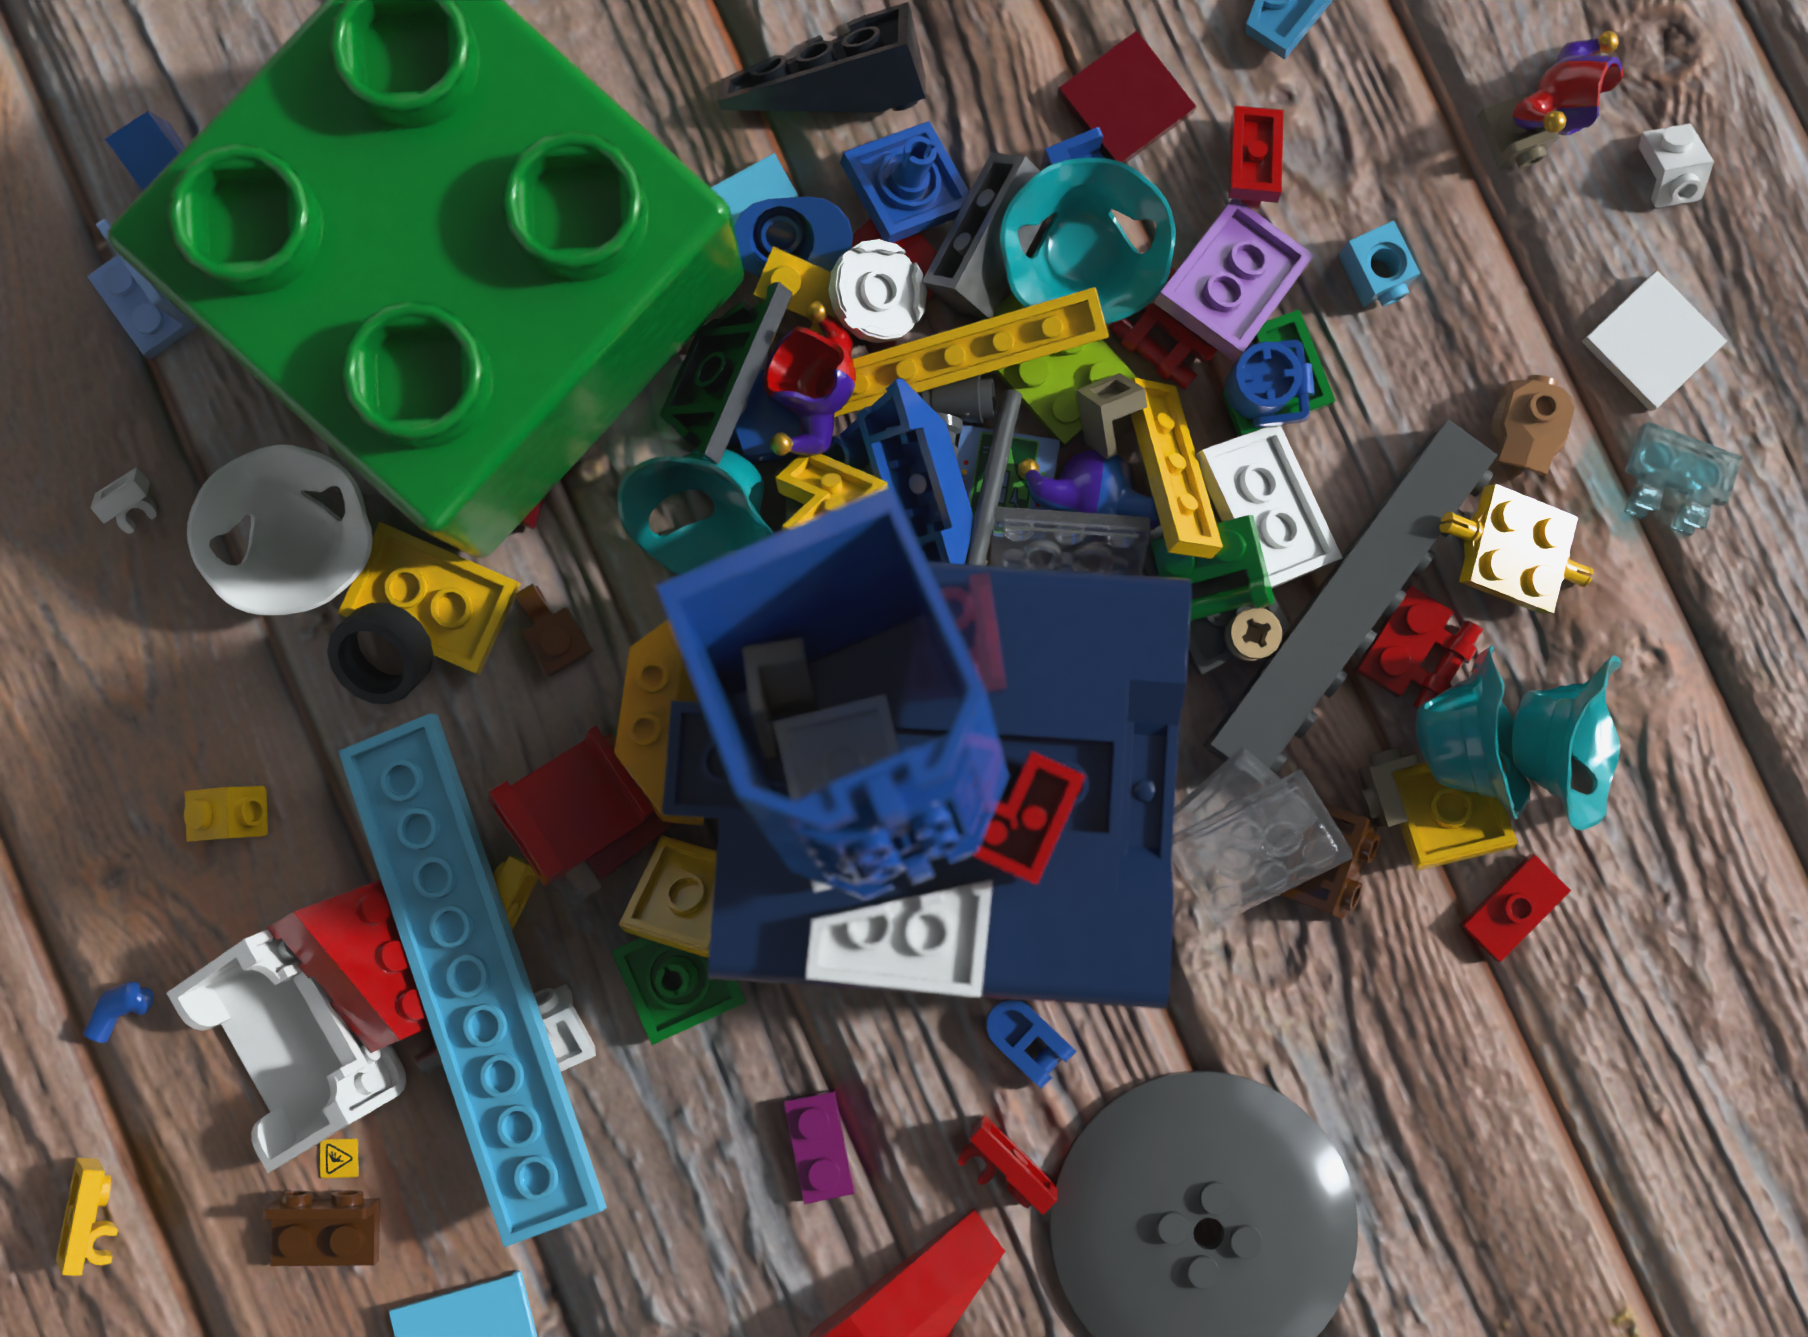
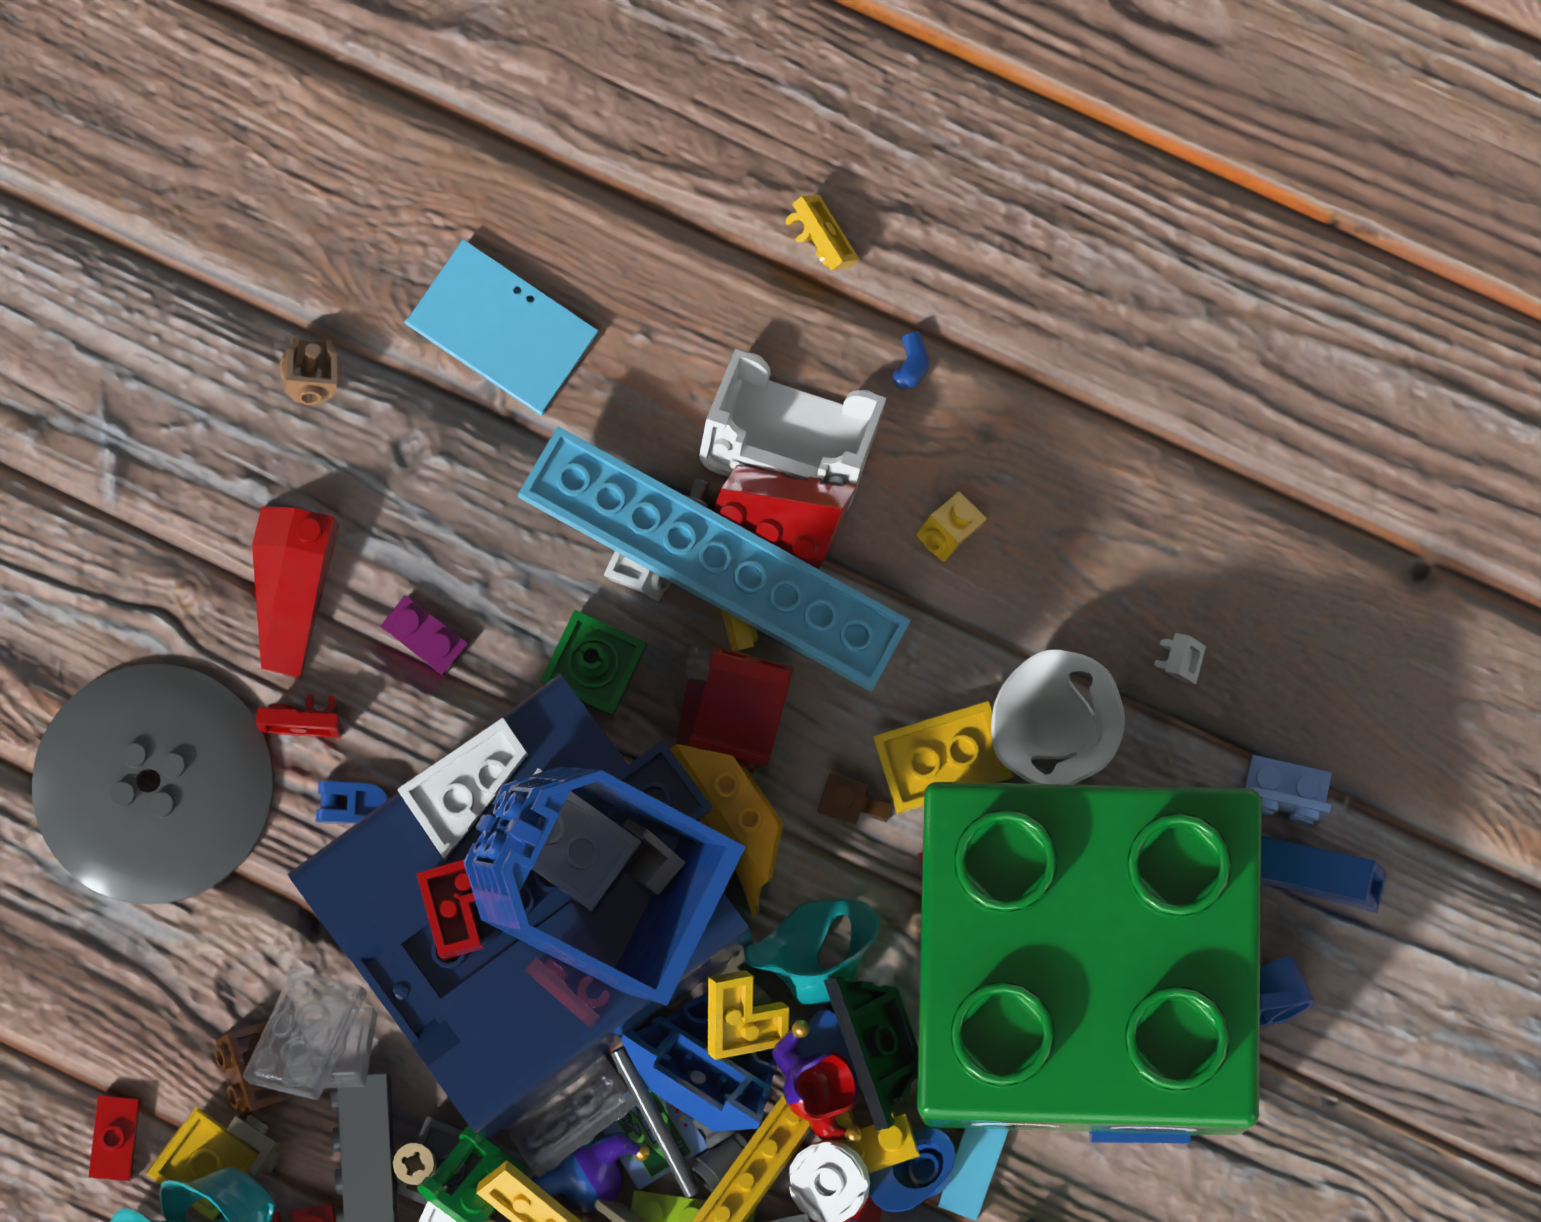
camera: 145 degrees right, 5 degrees down
(324, 1230) = (677, 342): reddish brown bracket -> none
(339, 1158) = (704, 388): yellow sticker -> none
(362, 677) = (938, 721): black tyre -> none
(675, 897) = (630, 709): yellow plate -> none

